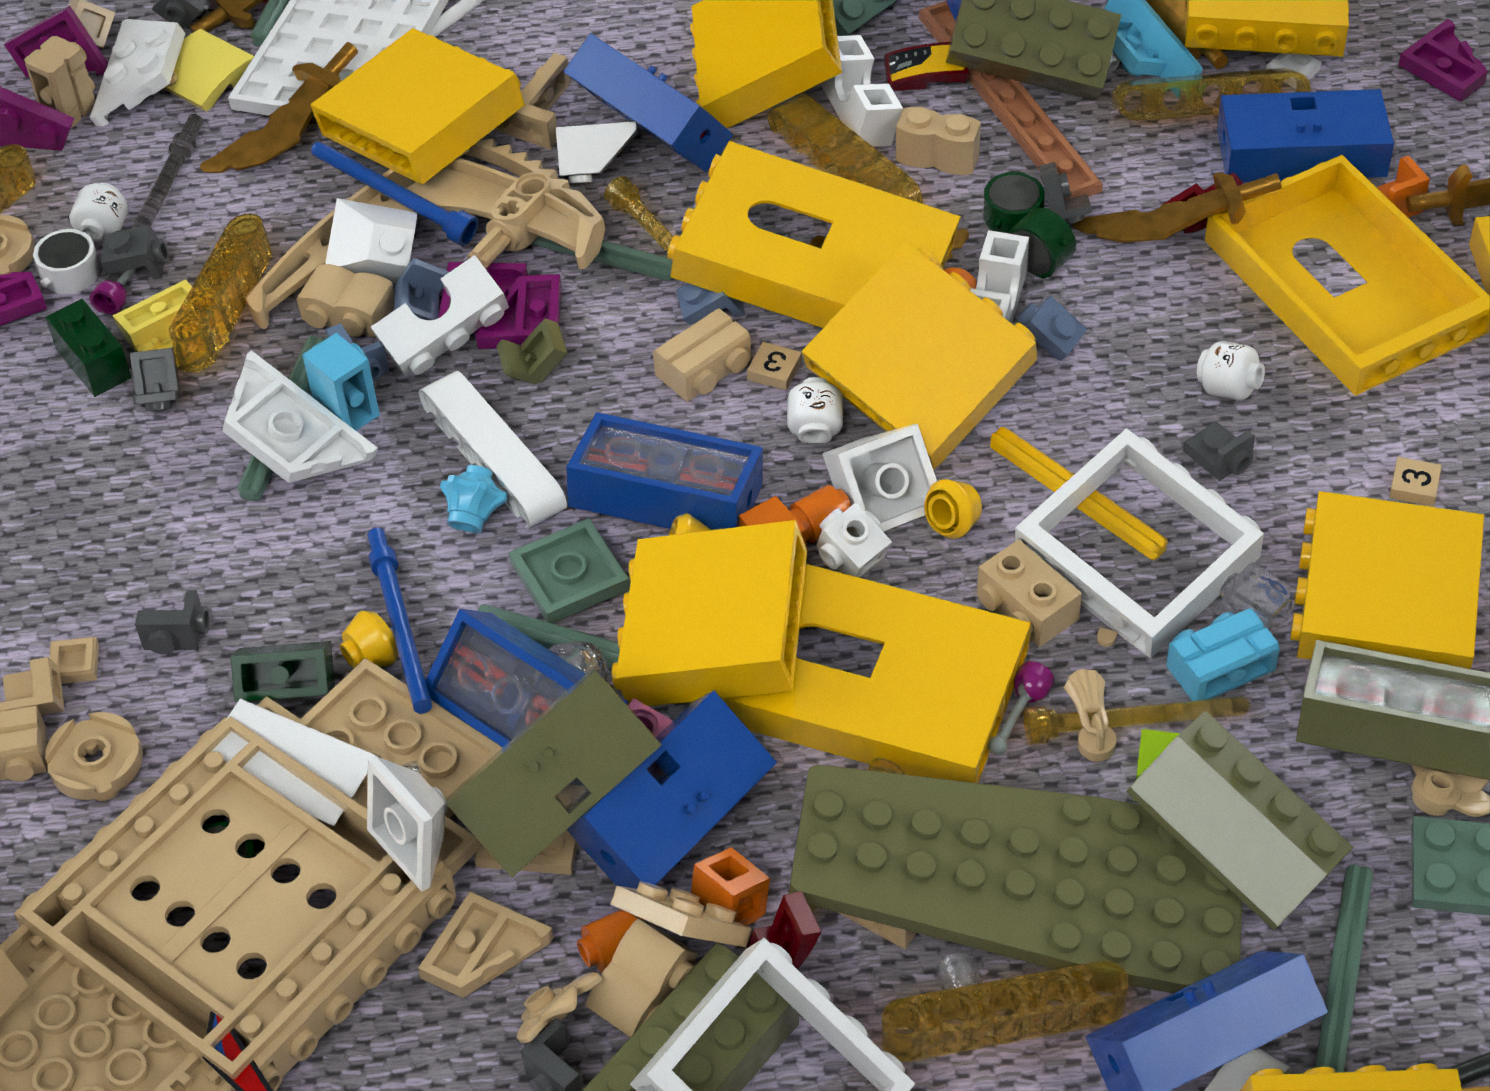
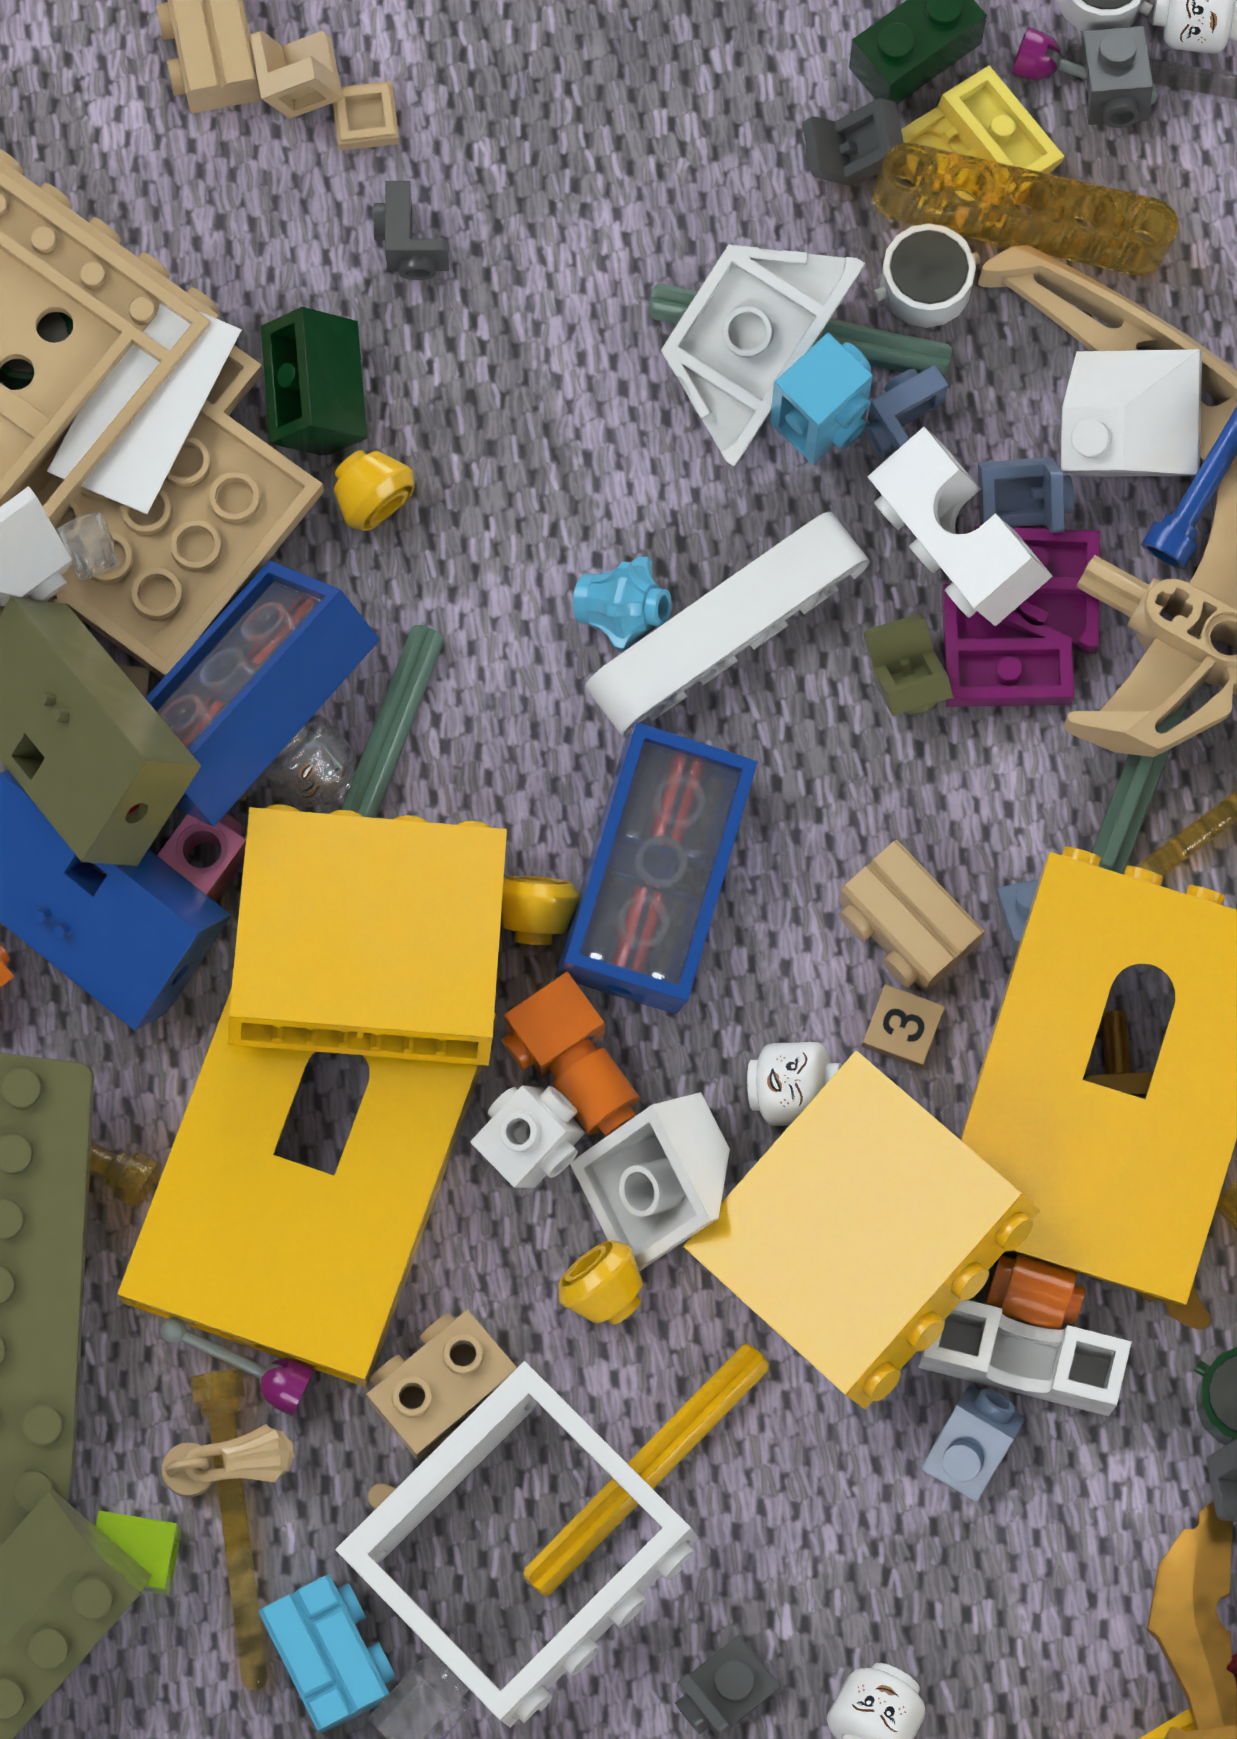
camera: 85 degrees right, 25 degrees up
(100, 778) = (186, 135): tan plate -> none
(260, 334) = (927, 275): none -> piece
(347, 298) = (1022, 390): tan brick -> none
(384, 565) = (518, 496): blue bar -> none
(569, 571) = (500, 746): sand green plate -> none
(1049, 241) = (1143, 1433): dark green piece -> none

